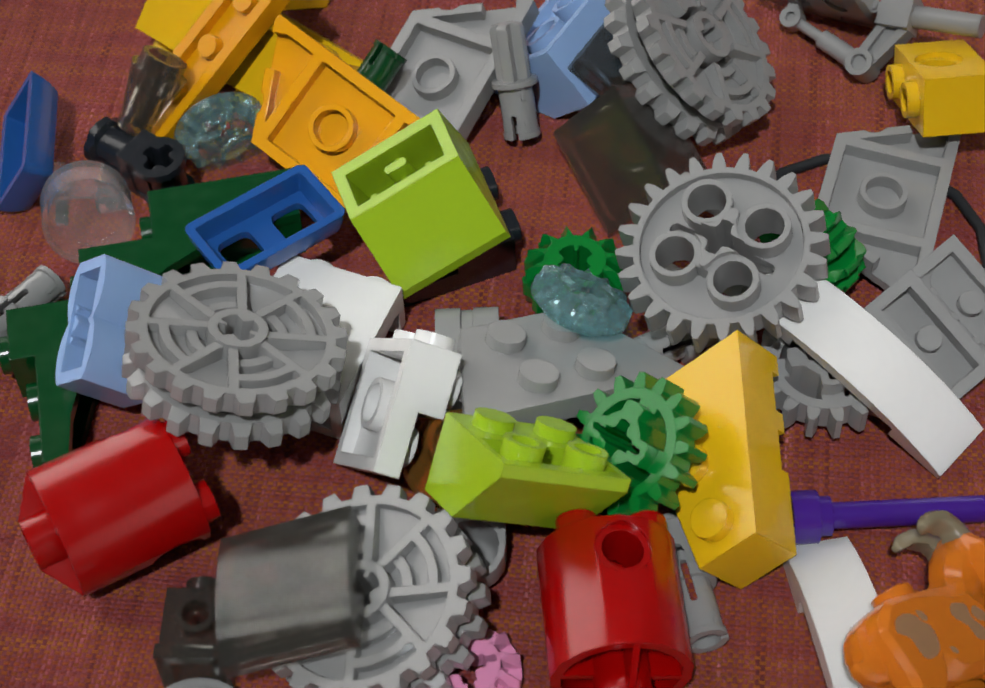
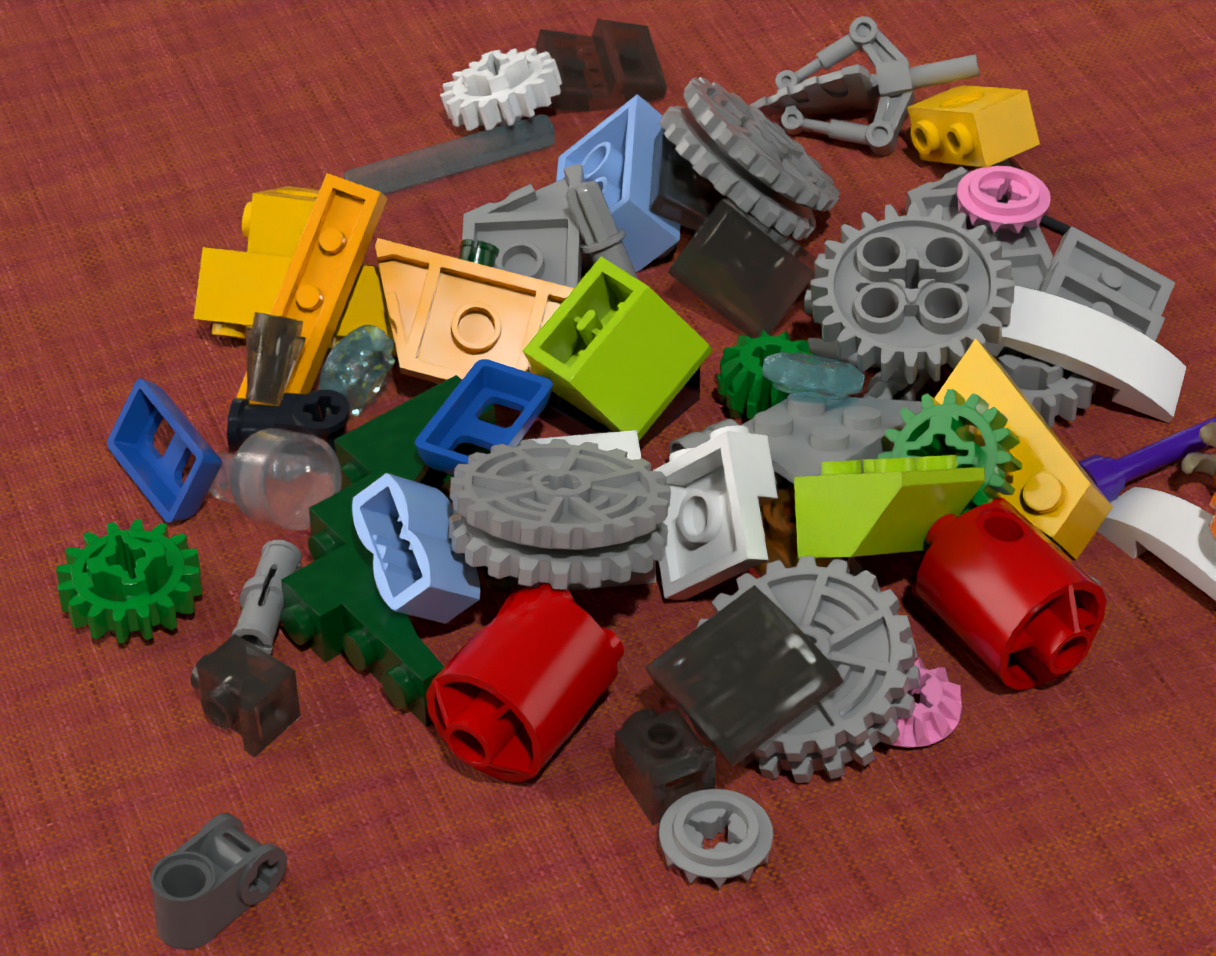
camera: 30 degrees left, 10 degrees down
(912, 157) = (983, 187): none -> bright pink gear

